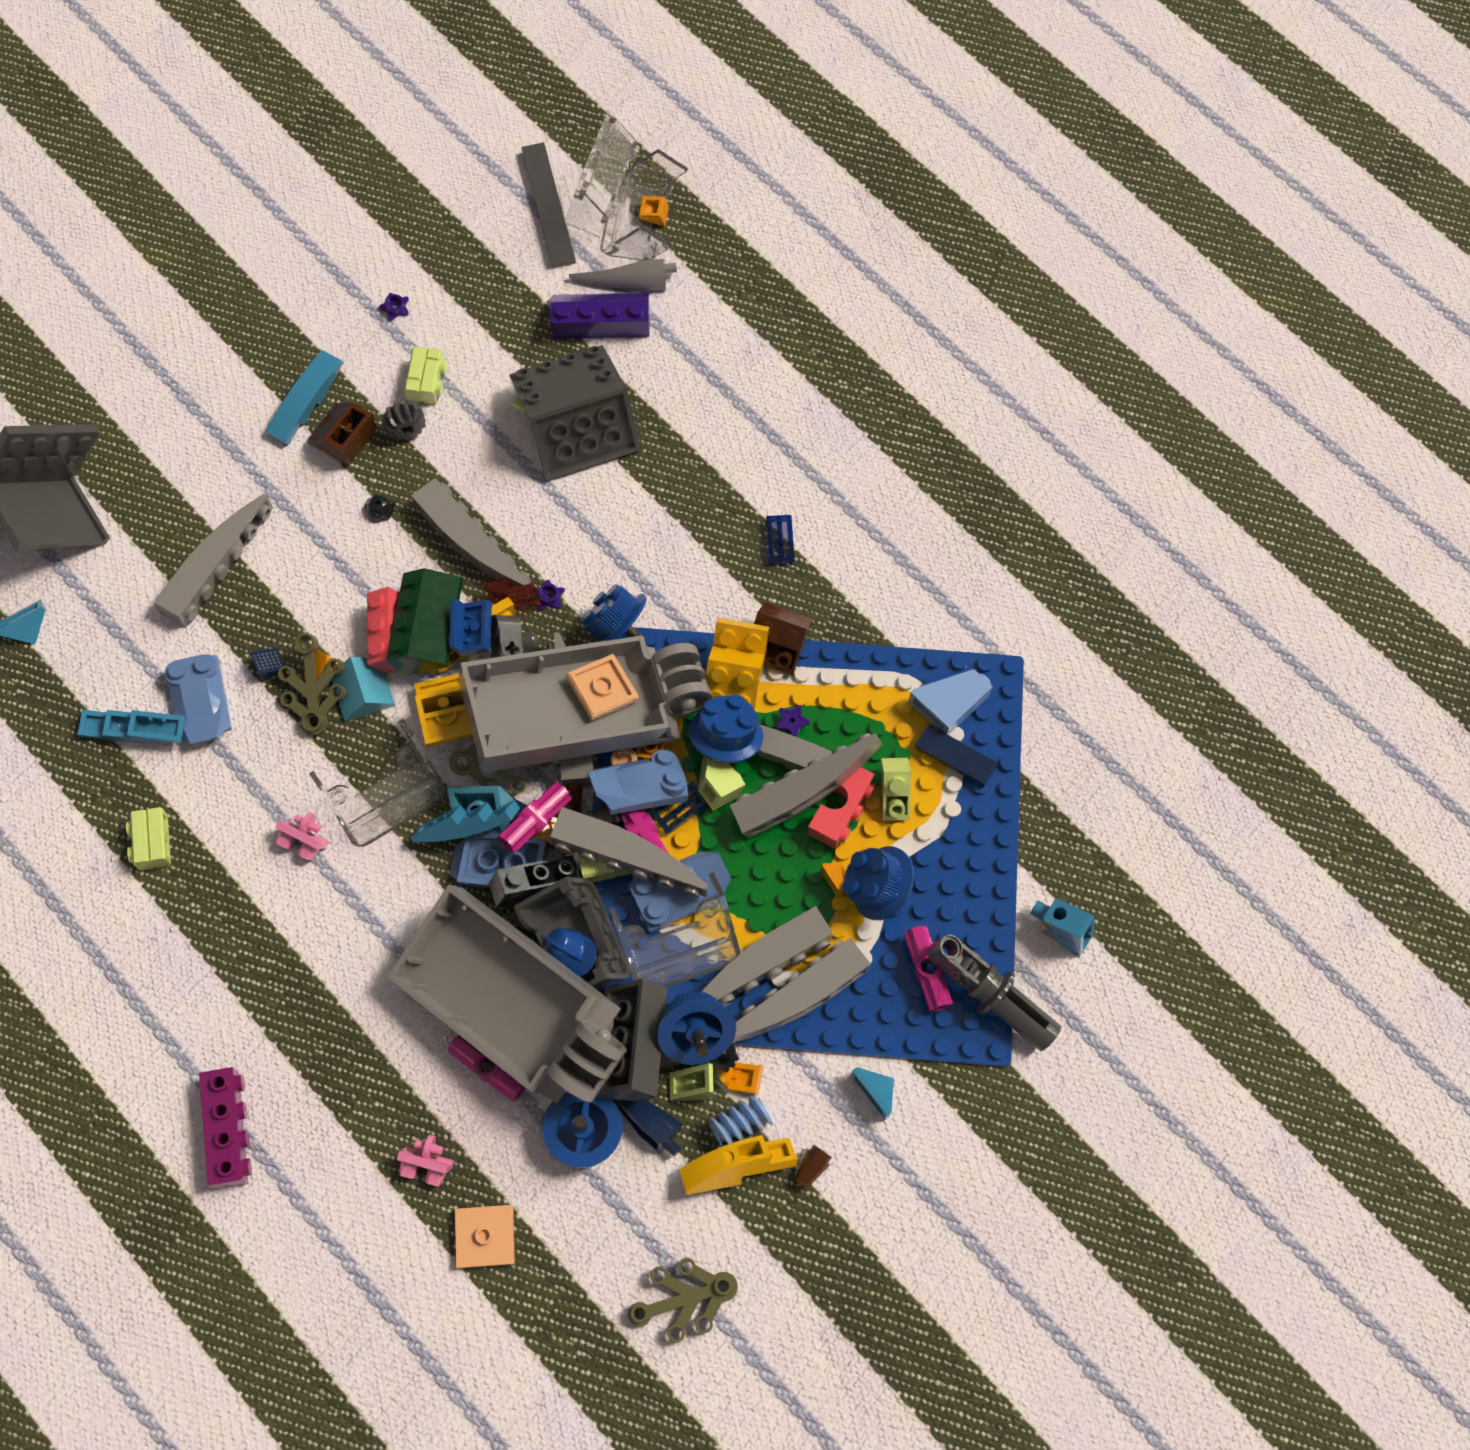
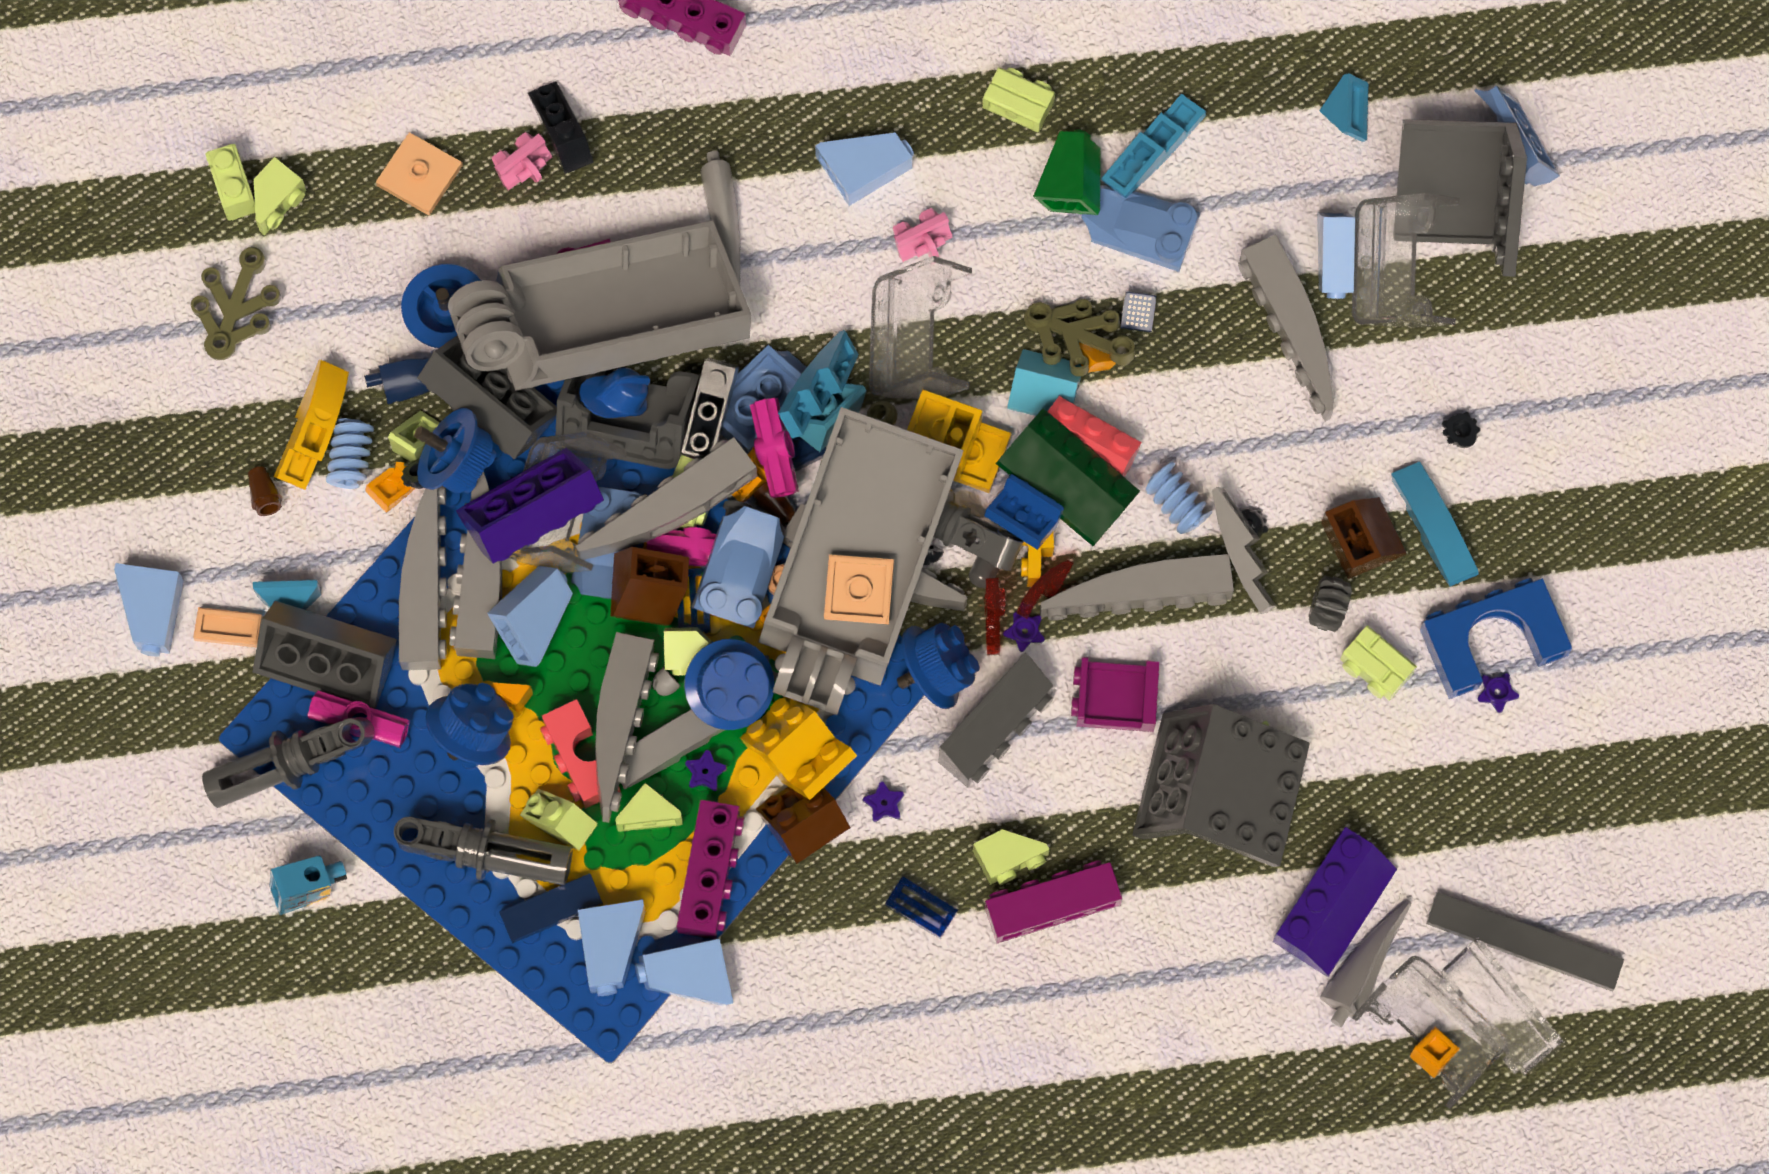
camera: 125 degrees right, 5 degrees up
(133, 528) = (1387, 260): none -> clear windscreen
(140, 562) = (1336, 253): none -> light blue slope
(190, 761) = (1071, 175): none -> green slope
(226, 419) = (1465, 426): none -> black animal
(270, 911) = (864, 163): none -> light blue slope
(362, 996) = (722, 205): none -> light grey piece
(376, 346) = (1524, 606): none -> blue arch
(377, 1153) = (561, 127): none -> black slope
(390, 553) = (1176, 500): none -> light blue piece
(398, 494) = (1238, 538): none -> light grey slope
(552, 612) = (994, 608): none -> clear red wing
(553, 510) = (1116, 695): none -> magenta panel
(576, 1335) = (275, 193): none -> yellowish green slope
(588, 1375) = (231, 182): none -> yellowish green brick
(626, 567) = (996, 721): none -> dark grey slope
(692, 835) = (648, 585): none -> reddish brown slope
(695, 947) = (530, 505): none -> dark purple slope
(709, 508) = (1008, 853): none -> yellowish green slope
(721, 461) = (1052, 902): none -> magenta brick
(723, 608) = (882, 811): none -> dark purple plate
(751, 782) = (665, 683): none -> light grey hinge
(768, 900) = (531, 614): none -> light blue slope
(844, 729) = (648, 811): none -> yellowish green slope
(856, 671) = (709, 869): none -> magenta brick
(900, 1026) = (323, 654): none -> dark grey slope
(927, 1119) = (227, 627): none -> light nougat tile
(932, 641) = (688, 972): none -> light blue slope
(955, 1184) = (150, 605): none -> light blue slope
(957, 822) = (474, 849): none -> dark grey piece

